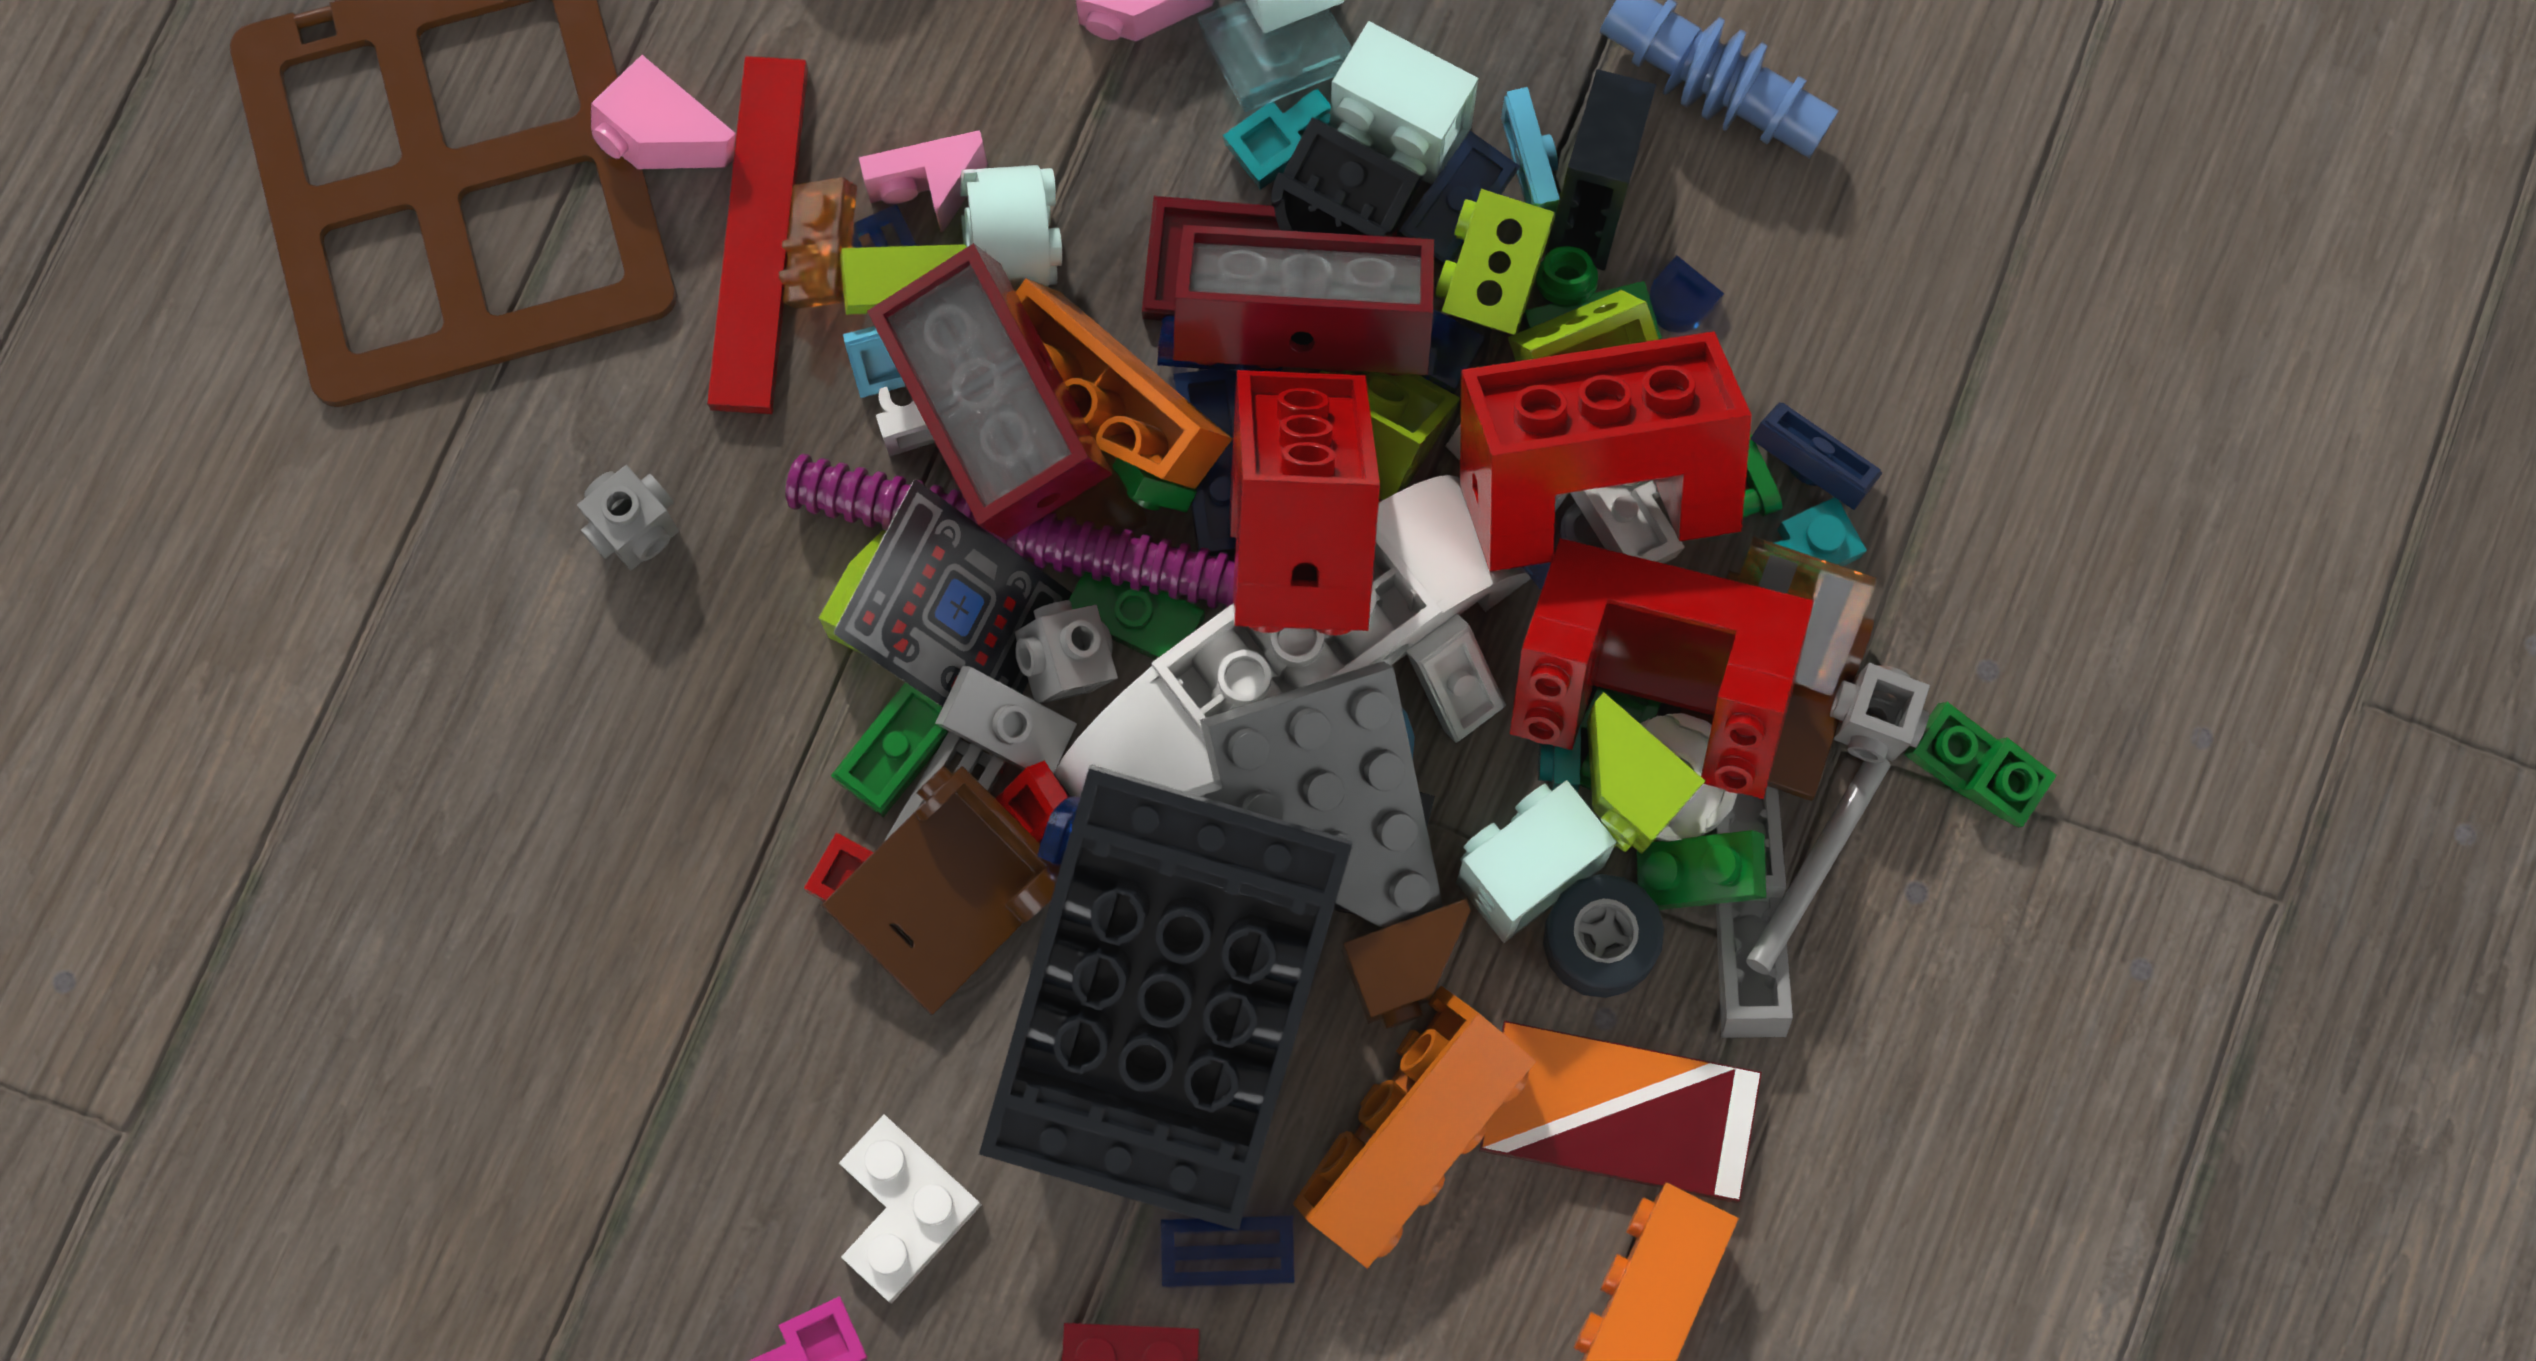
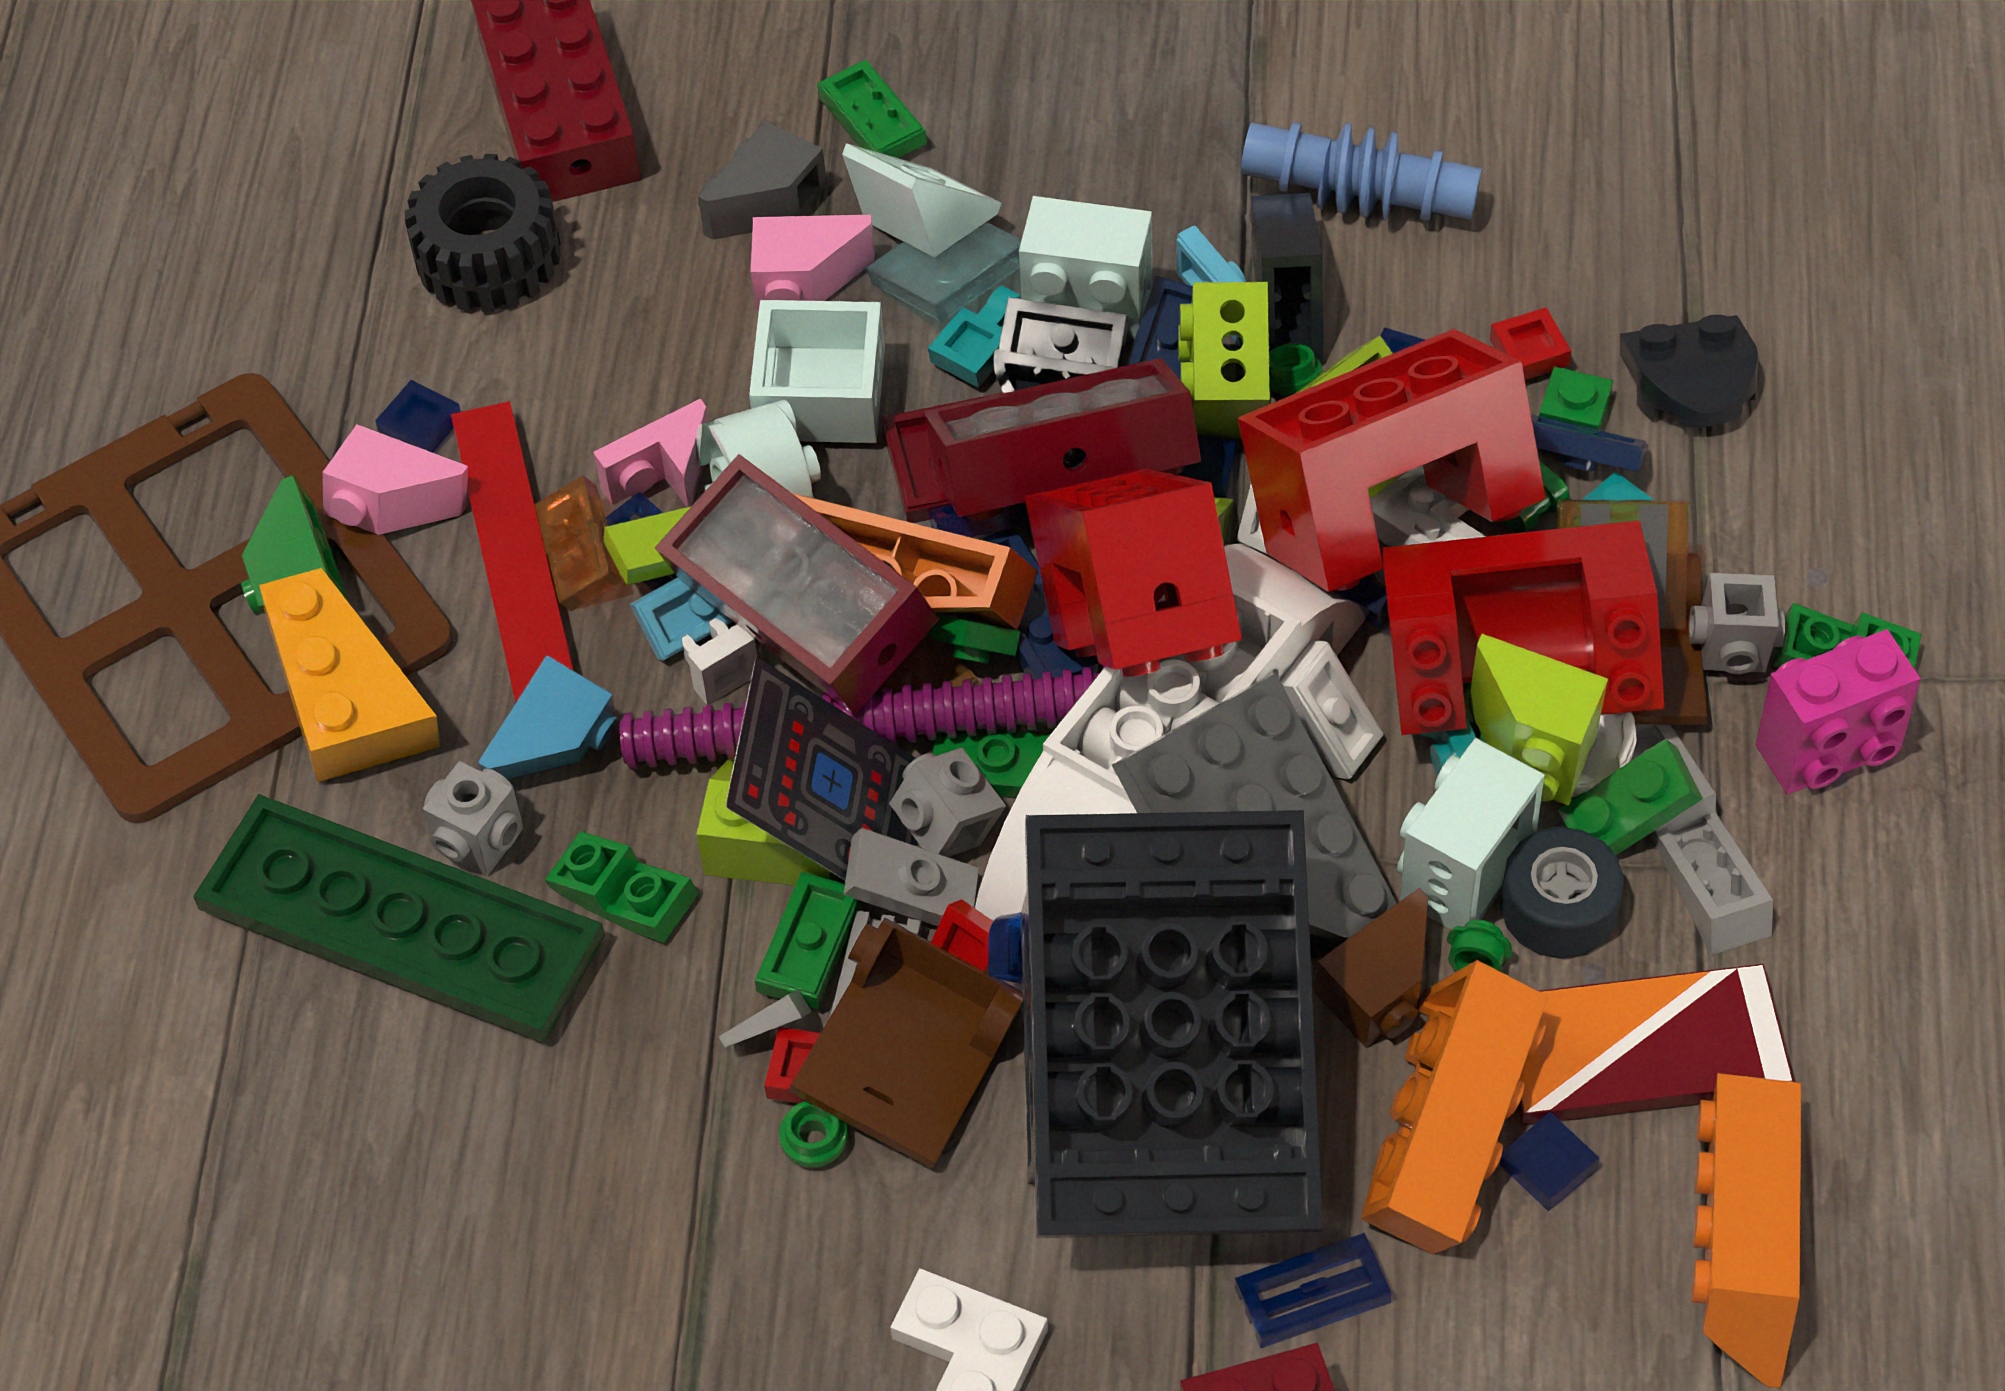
camera: 15 degrees left, 20 degrees down
(533, 595) = (400, 917): none -> dark green plate
(542, 179) = (287, 543): none -> green slope
(543, 331) = (341, 680): none -> light orange wedge
(714, 47) = (418, 417): none -> clear blue tile
(730, 441) = (551, 723): none -> dark azure slope
(746, 628) = (619, 888): none -> green slope
(814, 949) = (805, 1119): none -> green plate
(838, 819) = (779, 1013): none -> light grey piece
(1106, 131) = (824, 364): none -> light aqua piece
(1487, 1199) = (1549, 1161): none -> clear blue tile
(1505, 965) = (1480, 942): none -> green plate
(1810, 324) = (1533, 341): none -> red plate
(1816, 866) = (1735, 773): light grey bar -> none
(1832, 399) = (1576, 398): none -> green plate
(1933, 845) = (1837, 711): none -> dark pink brick
(1959, 405) = (1693, 369): none -> black slope

